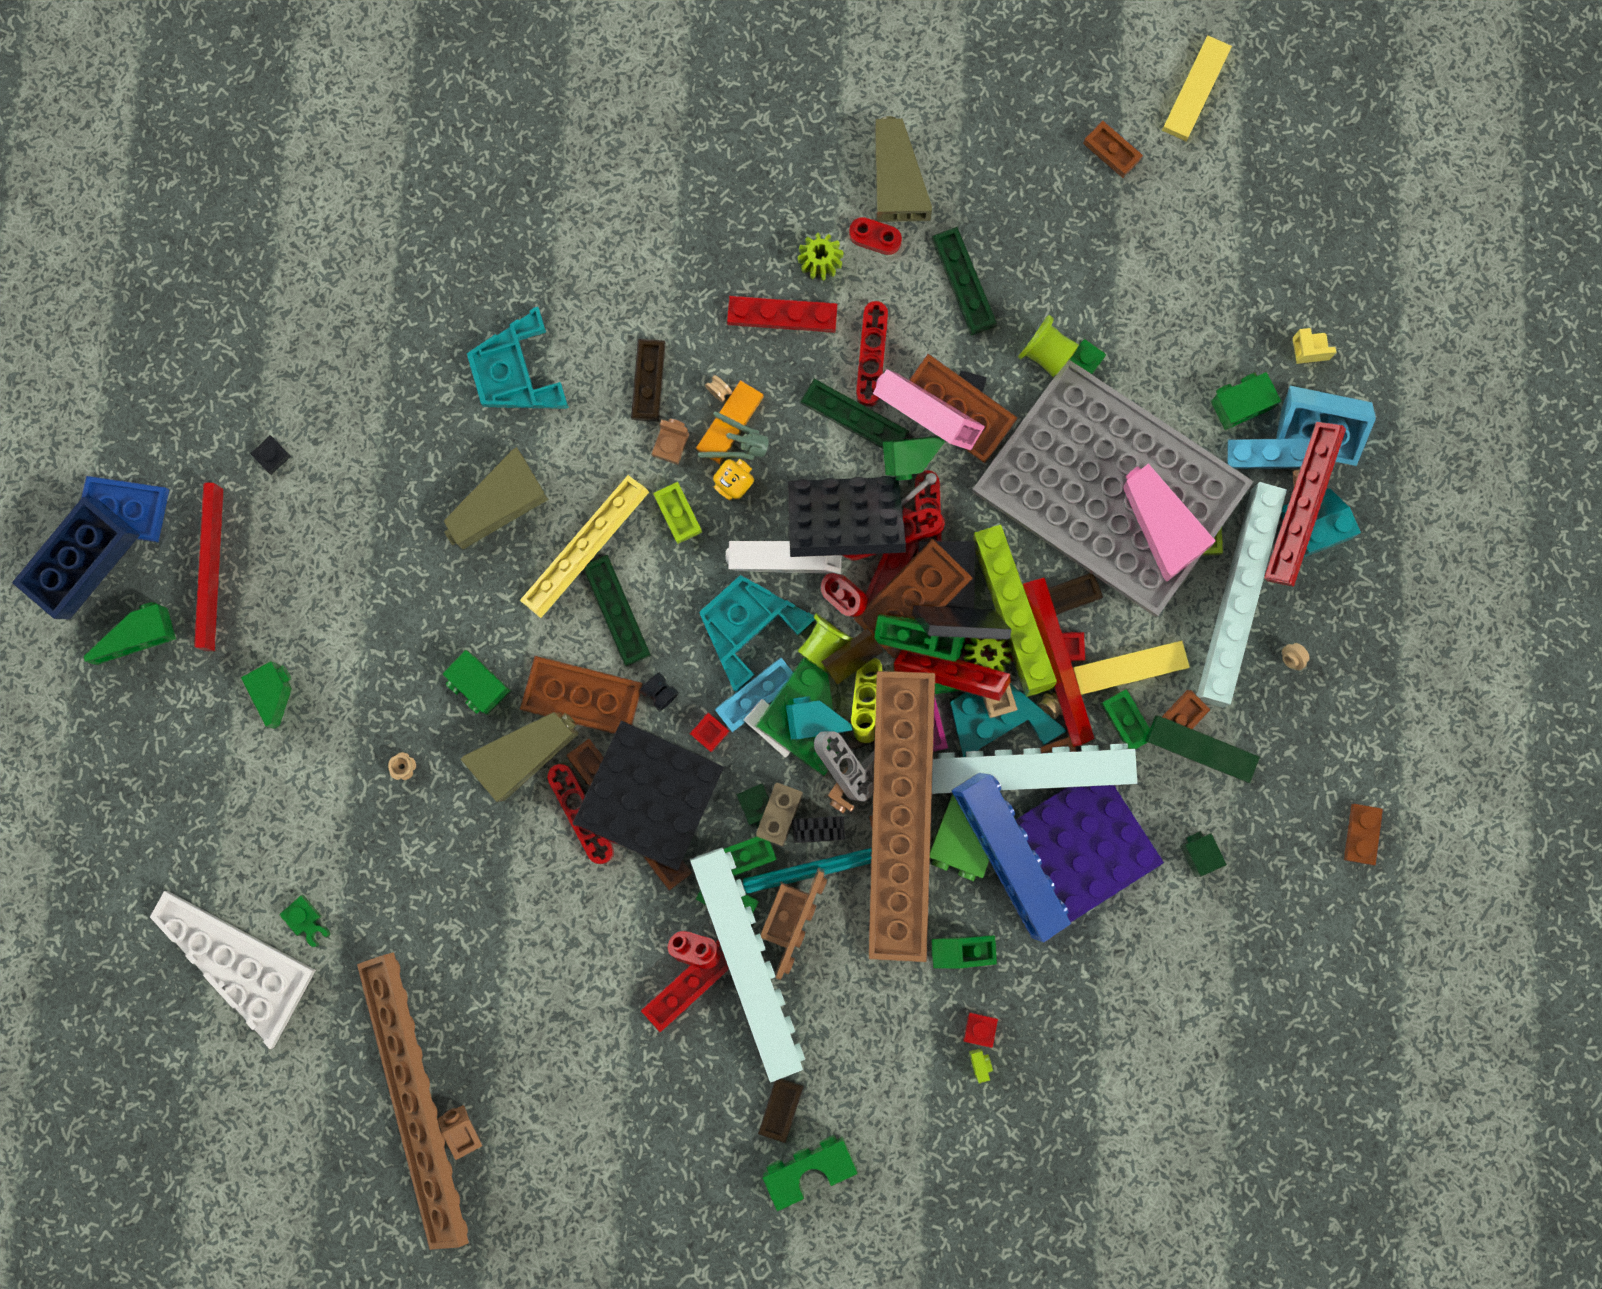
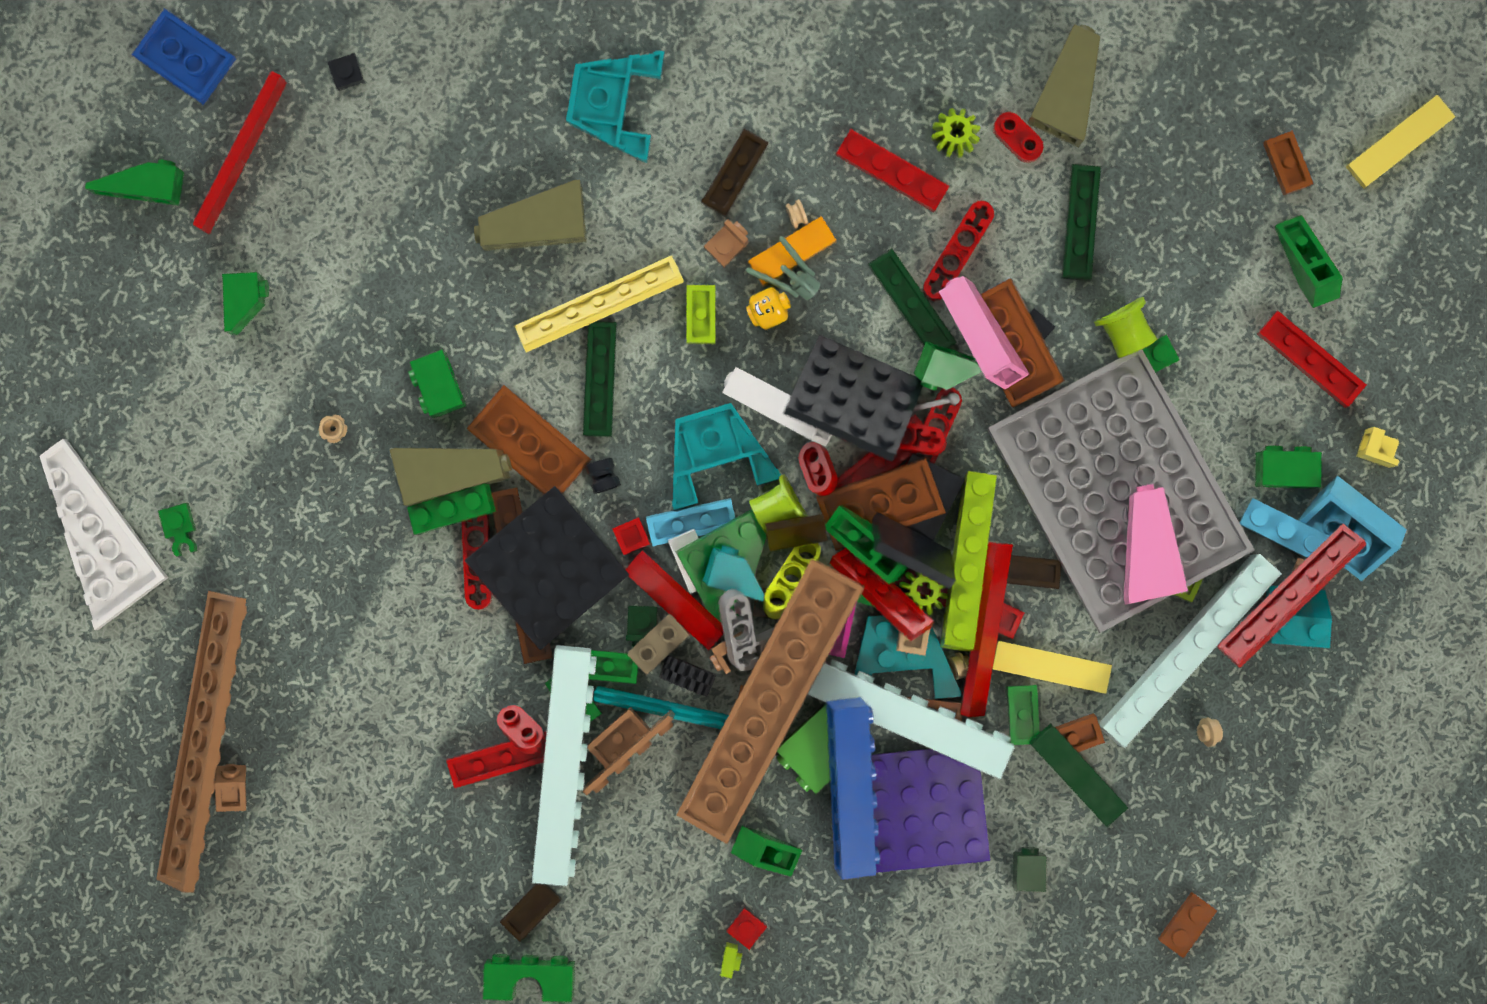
camera: 20 degrees right, 5 degrees up
(75, 558) = (120, 86): dark blue brick -> none
(540, 785) = (451, 509): none -> green plate
(775, 769) = (675, 600): none -> red tile
(1174, 221) = (1309, 261): none -> green slope
(1217, 300) = (1311, 359): none -> red plate

